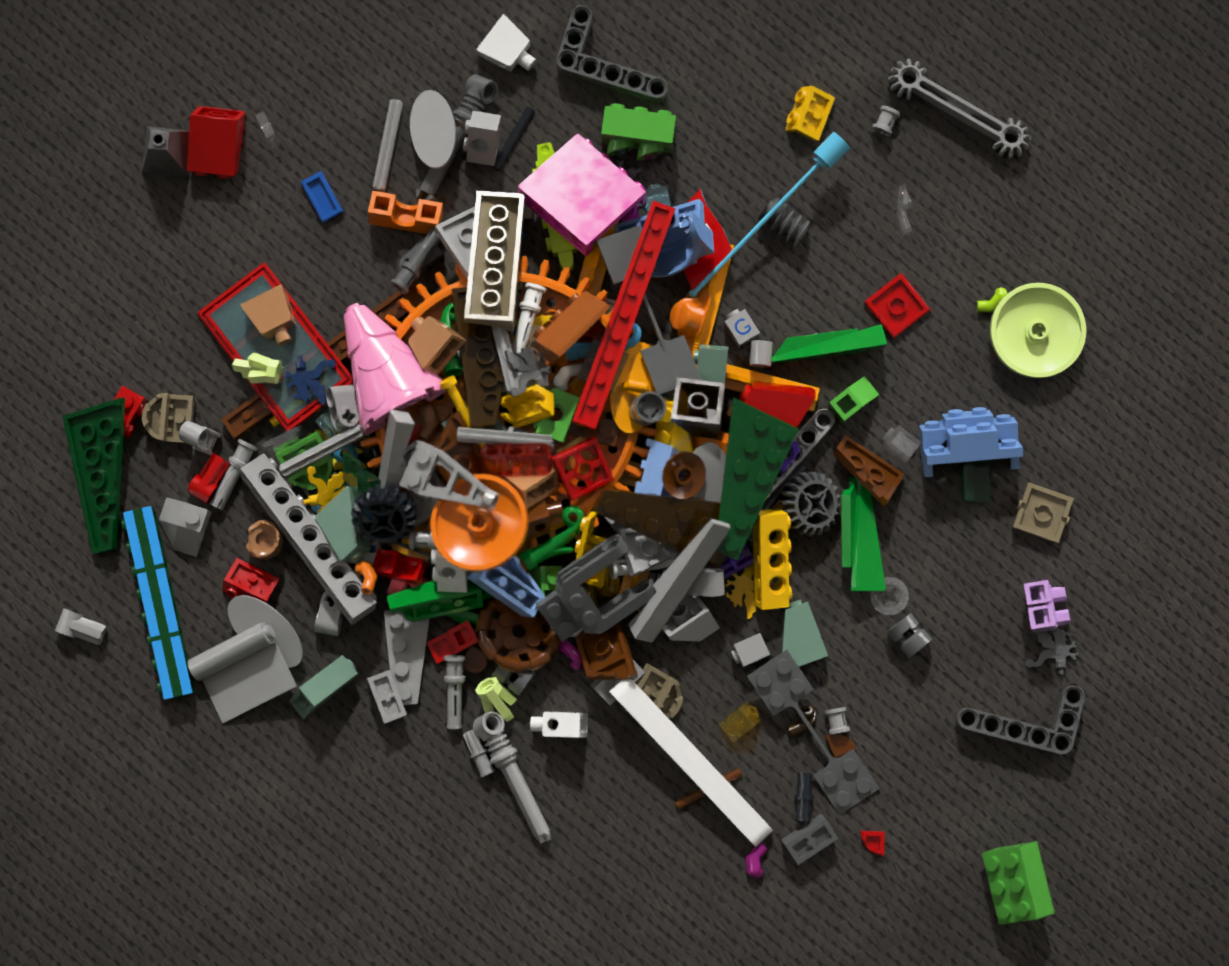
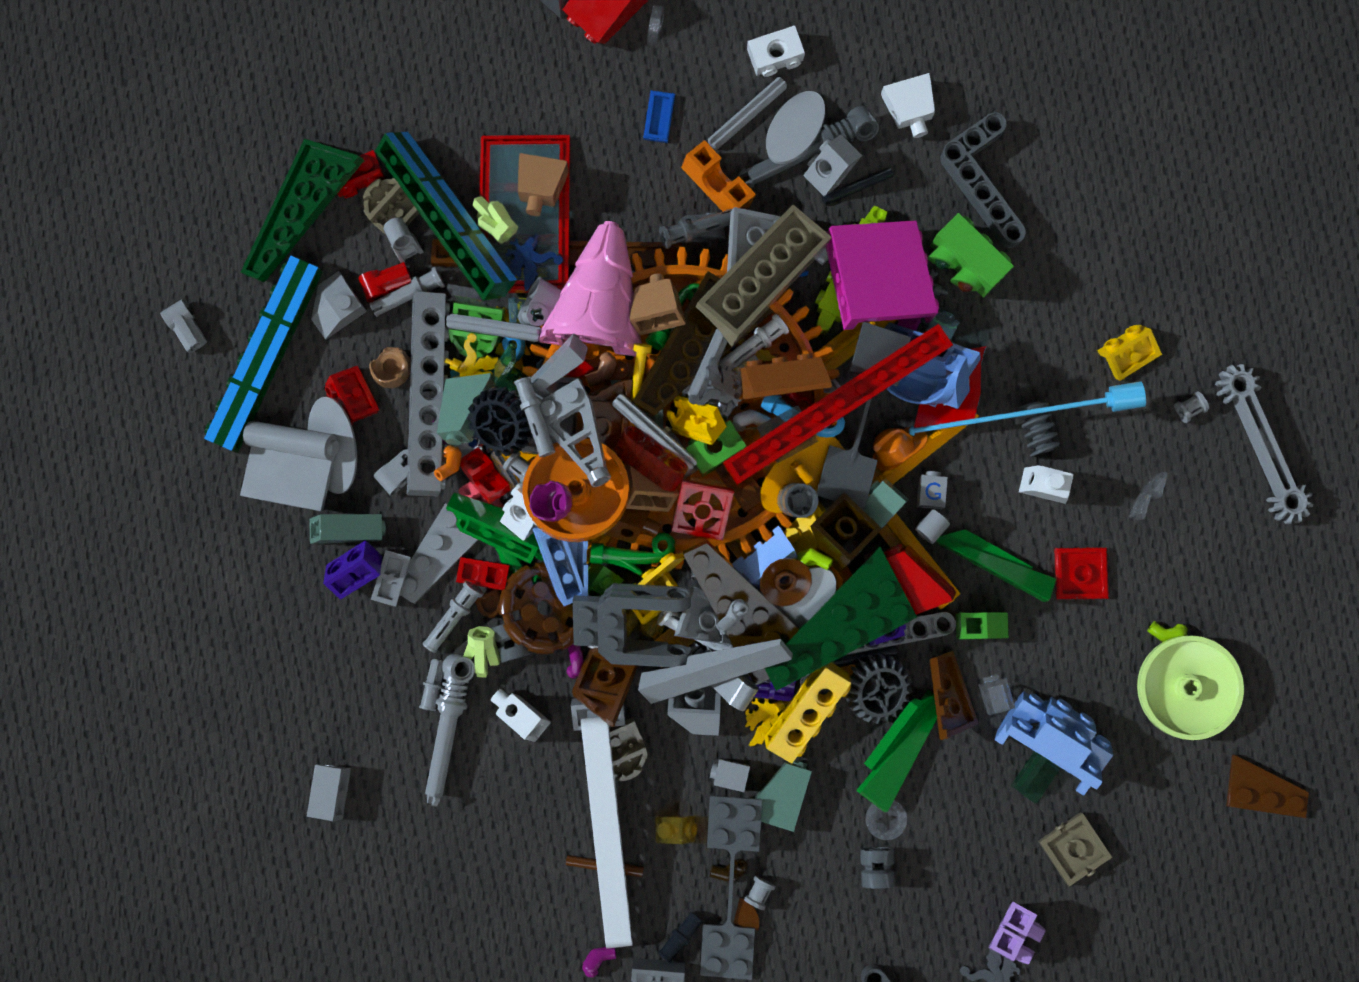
camera: 40 degrees right, 0 degrees up
(219, 393) = (445, 215): none -> dark green brick
(353, 711) = (353, 569): none -> dark purple brick
(374, 69) = (785, 41): none -> white brick
(408, 492) = (531, 406): none -> light grey pin
(461, 891) = (328, 792): none -> light grey hinge
(468, 544) = (551, 501): none -> magenta hair
(664, 526) = (735, 613): none -> light grey arm
(690, 442) = (813, 557): none -> lime arm
(821, 258) = (1047, 483): none -> white torso
(1148, 366) = (1261, 791): none -> reddish brown wing

